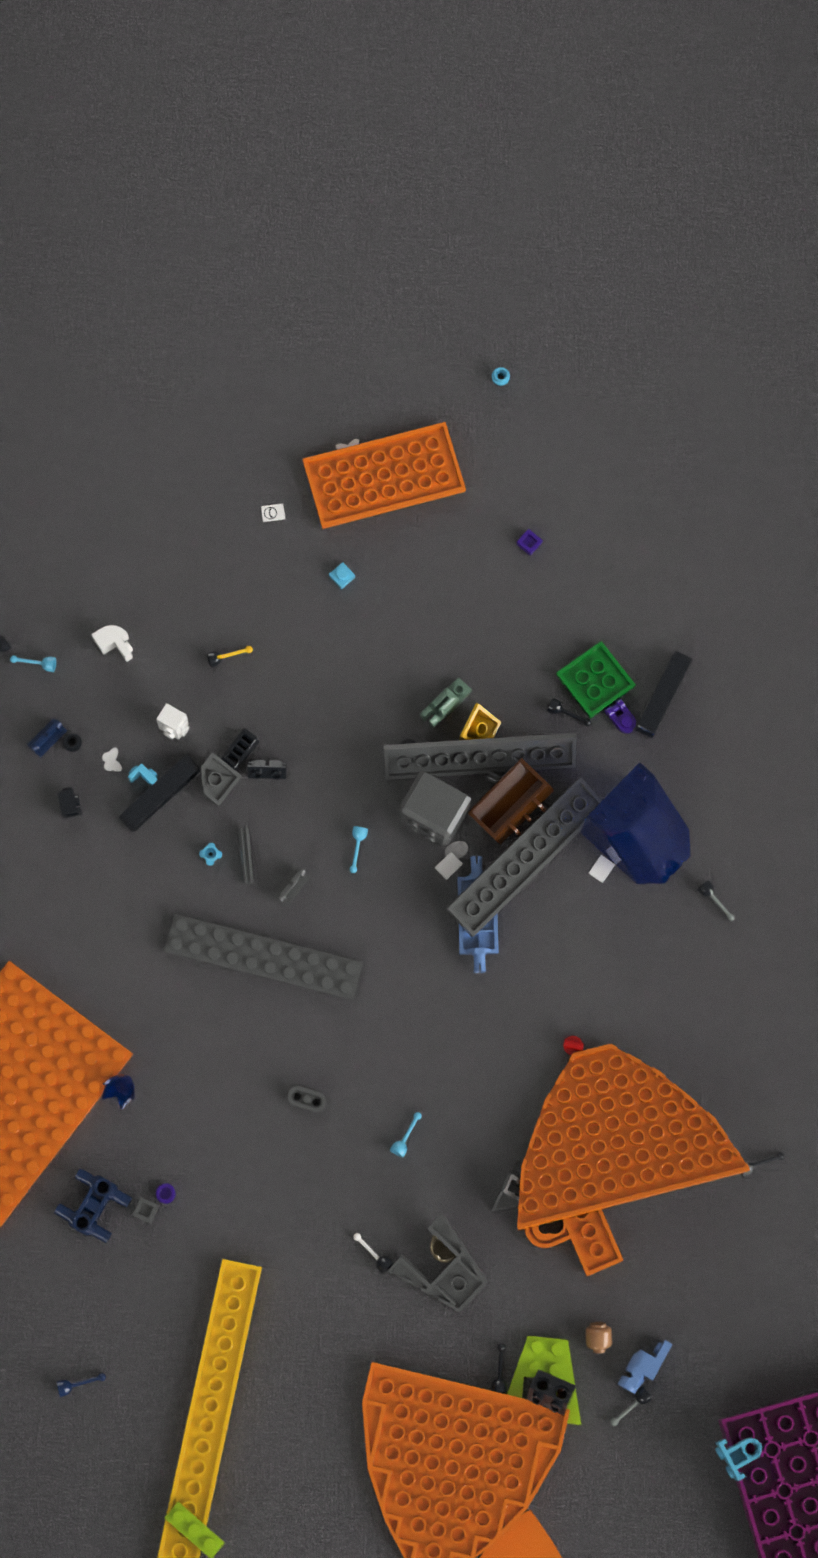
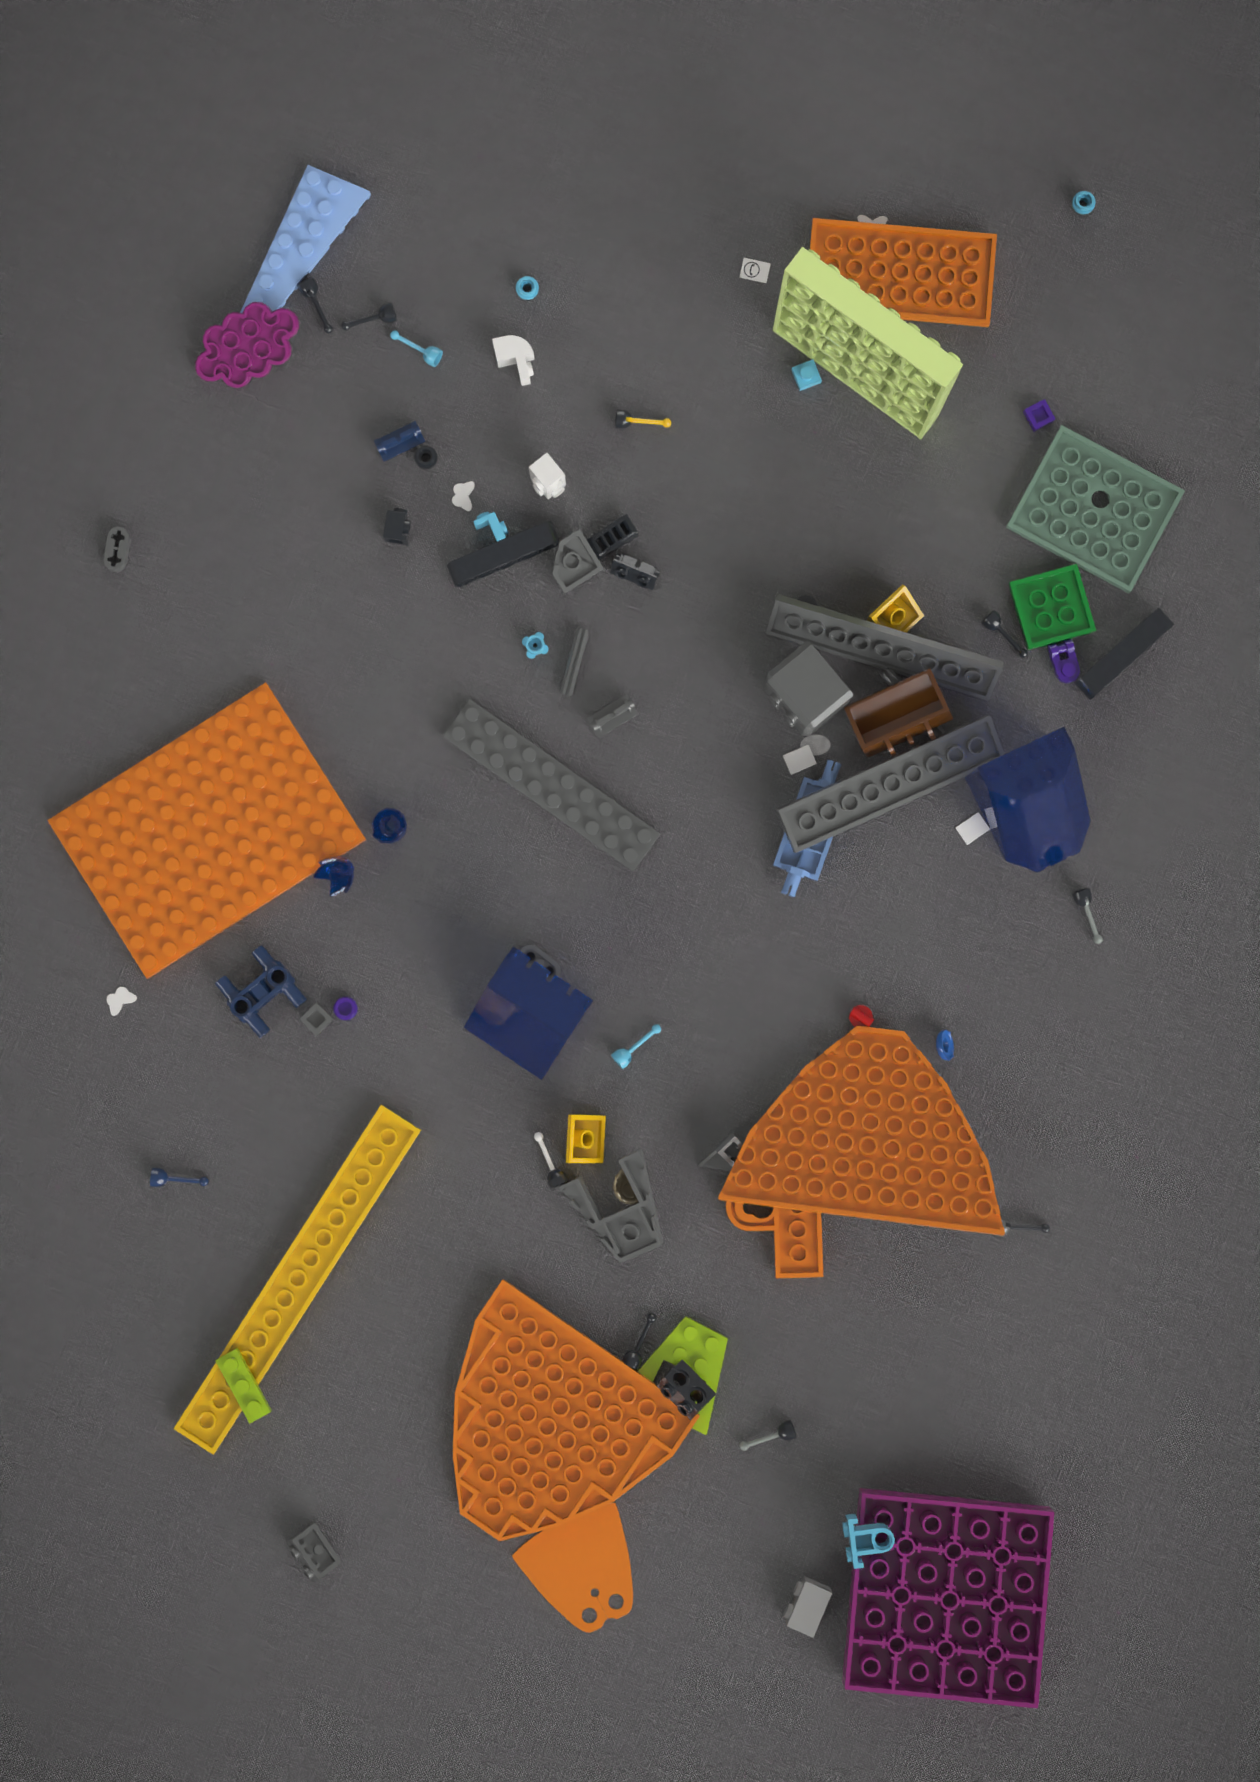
camera: 25 degrees right, 10 degrees up
(103, 582) = (527, 281): none -> medium azure plate
(148, 1035) = (389, 826): none -> clear blue hair
(312, 1139) = (527, 1014): none -> clear blue windscreen
(359, 834) = (711, 686): medium azure hinge -> none
(378, 534) = (864, 343): none -> yellowish green brick
(394, 1223) = (585, 1138): none -> yellow slope
(446, 702) = (869, 569): sand green plate -> none
(598, 1337) = (762, 1349): medium nougat head -> none
(615, 617) = (1103, 541): none -> sand green plate
(643, 1366) = (801, 1399): medium blue plate -> none
(646, 1042) = (945, 1045): none -> blue piece
(715, 1531) = (808, 1606): none -> light grey brick

